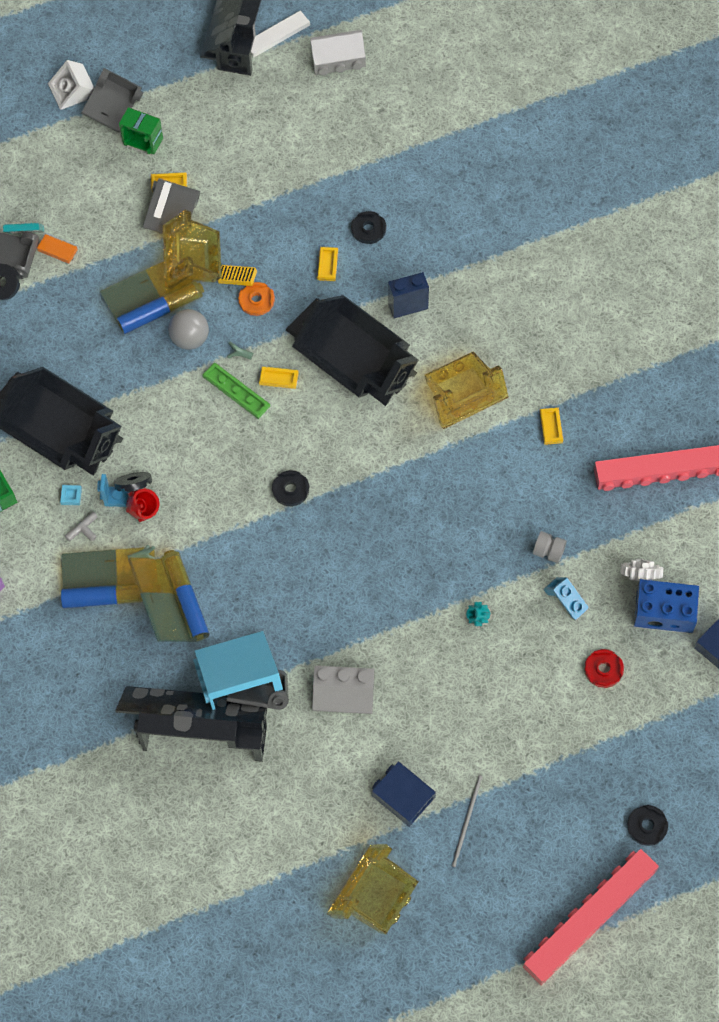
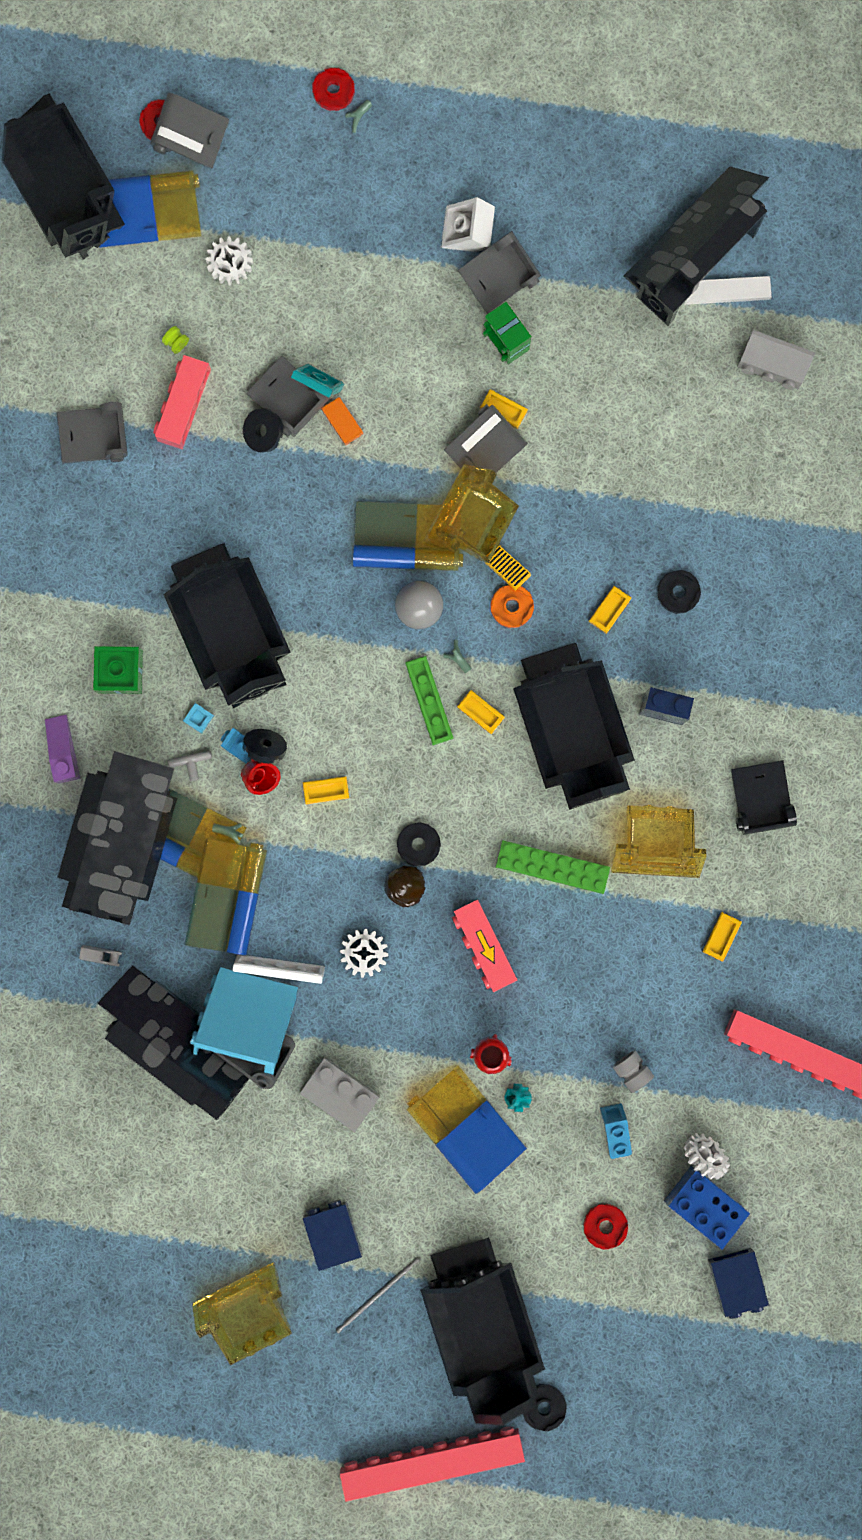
camera: 30 degrees right, 20 degrees up
(60, 599) = (117, 838): none -> black panel
(92, 700) = (97, 954): none -> light grey bar
(198, 490) = (326, 790): none -> yellow tile
(235, 630) = (279, 968): none -> white tile
(299, 520) = (405, 886): none -> dark brown hair
(303, 575) = (364, 943): none -> white gear
(384, 525) = (485, 946): none -> coral brick
(398, 447) = (552, 867): none -> bright green piece
(438, 588) = (491, 1055): none -> red piece
(454, 660) = (466, 1129): none -> door
(518, 323) = (762, 801): none -> black door
(563, 791) = (483, 1332): none -> black panel

